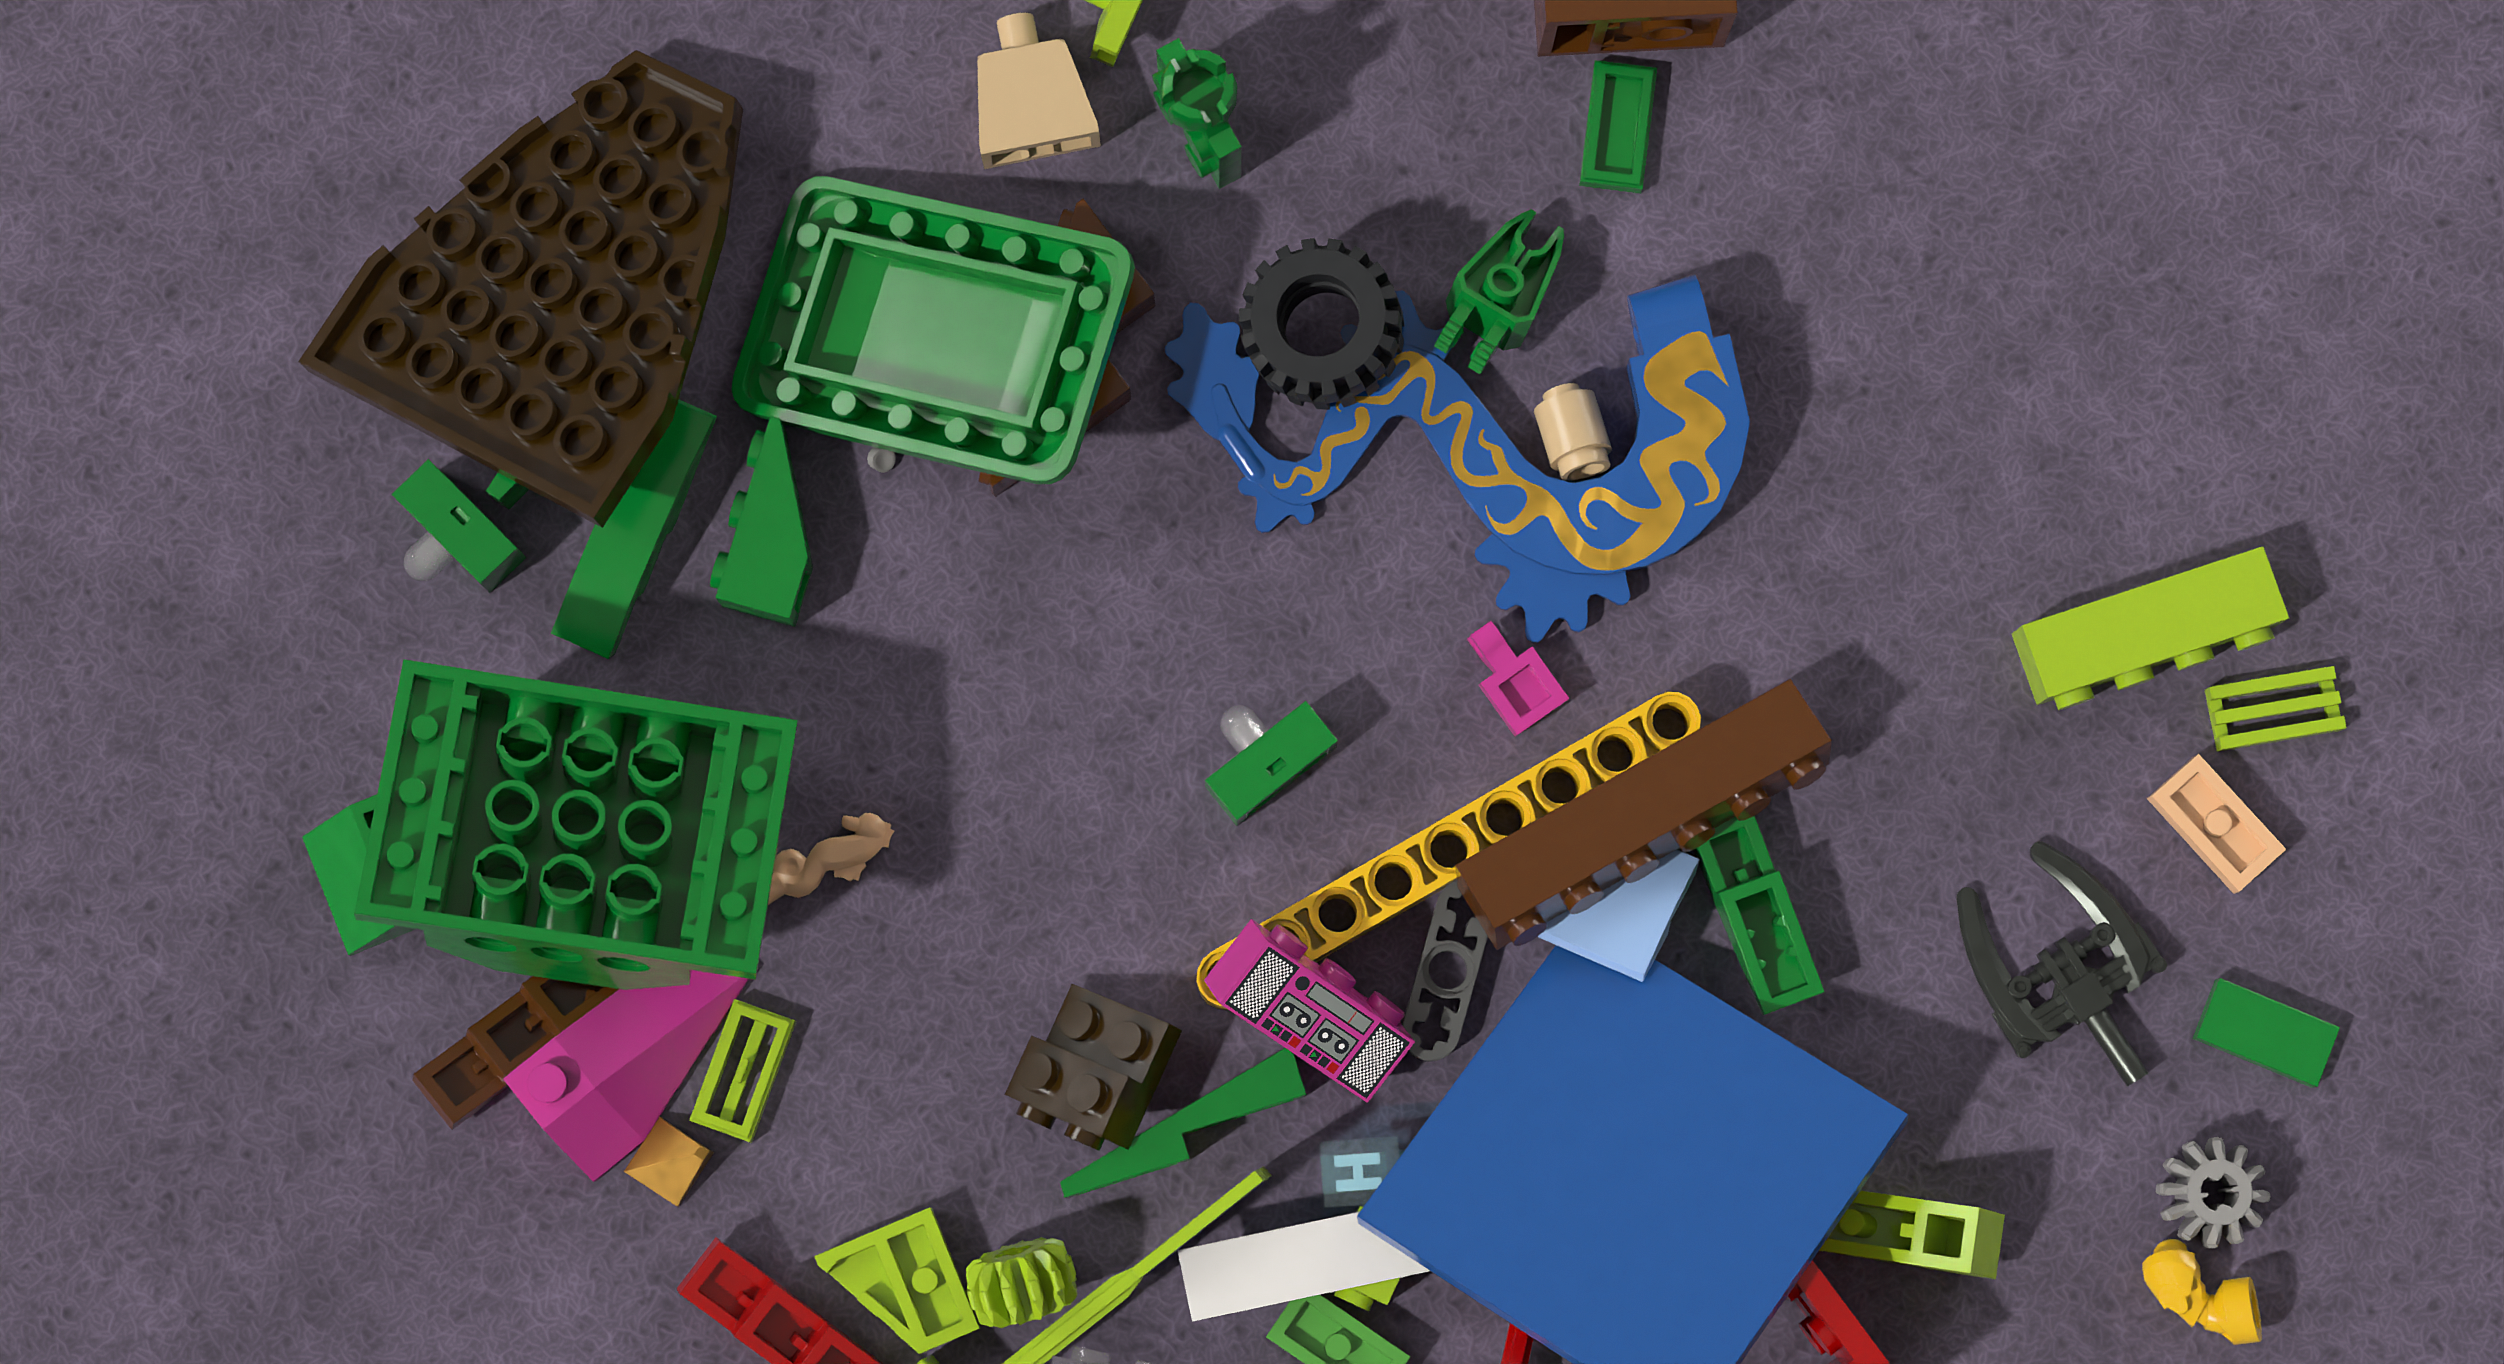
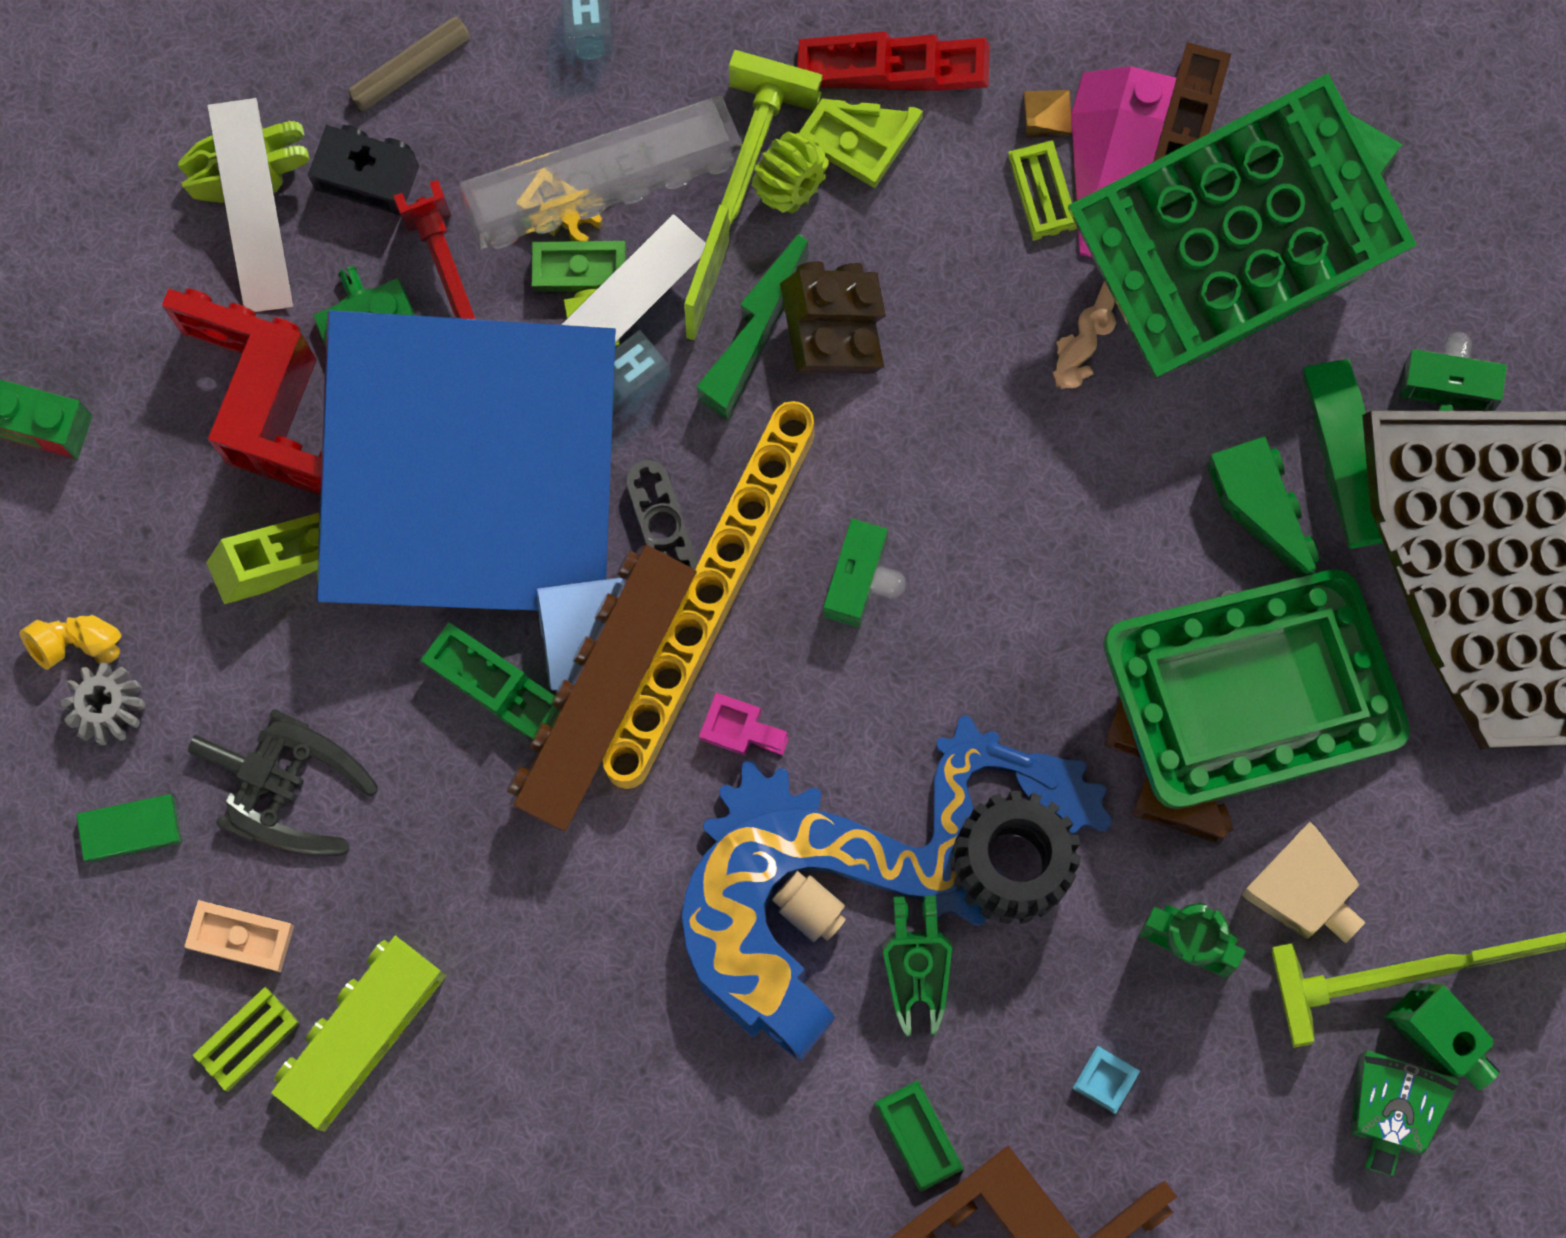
camera: 155 degrees right, 5 degrees down
(1310, 1008) = (727, 432): brick -> none
(1382, 52) = (1106, 1080): none -> medium azure tile

